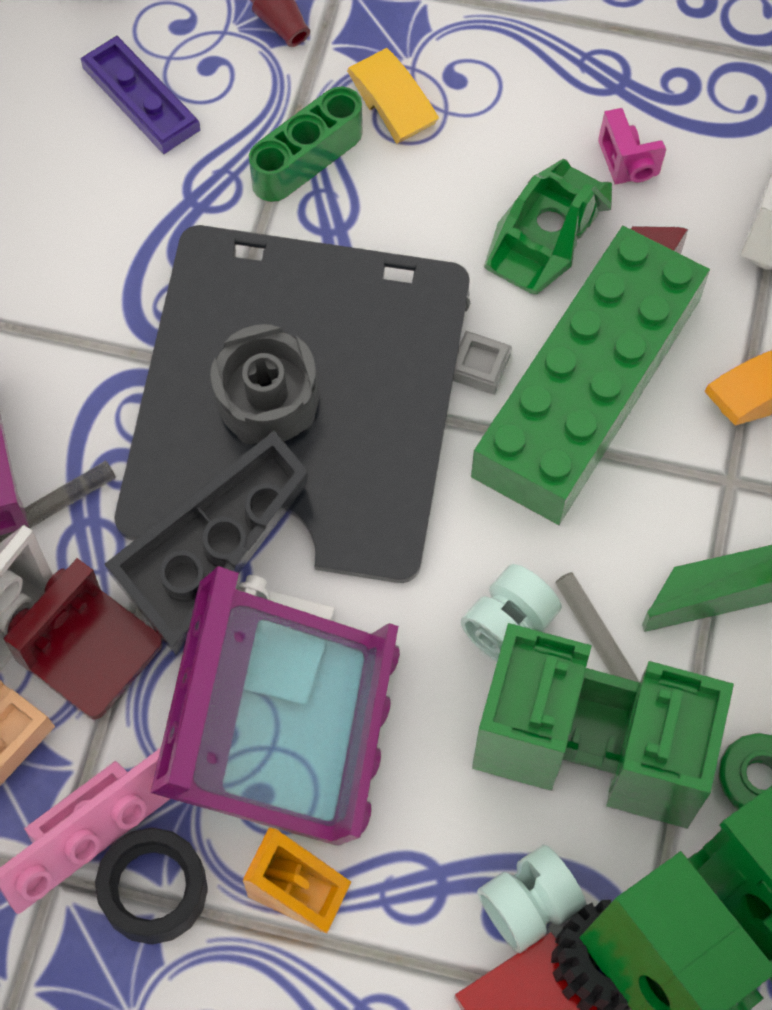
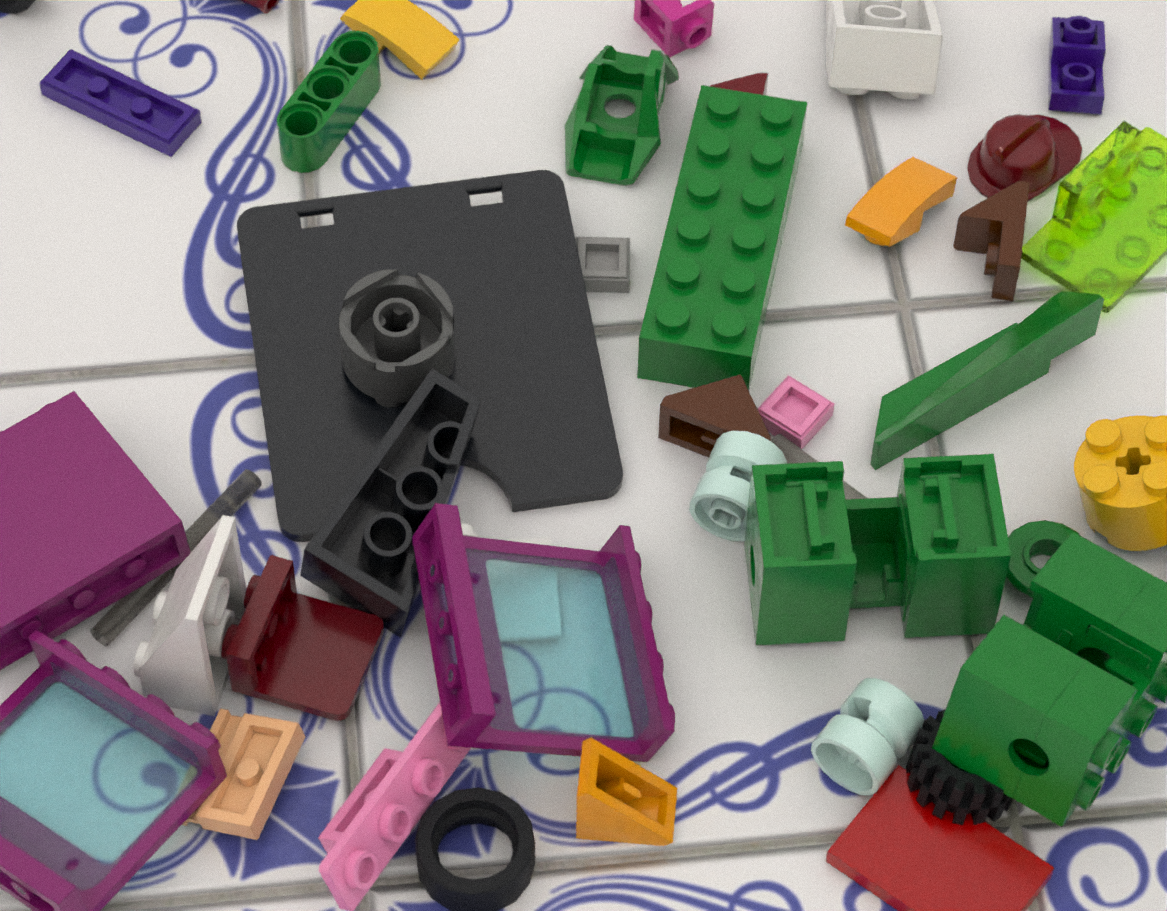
camera: 20 degrees left, 10 degrees down
(515, 539) = (704, 413): none -> reddish brown slope
(592, 555) = (795, 412): none -> bright pink tile

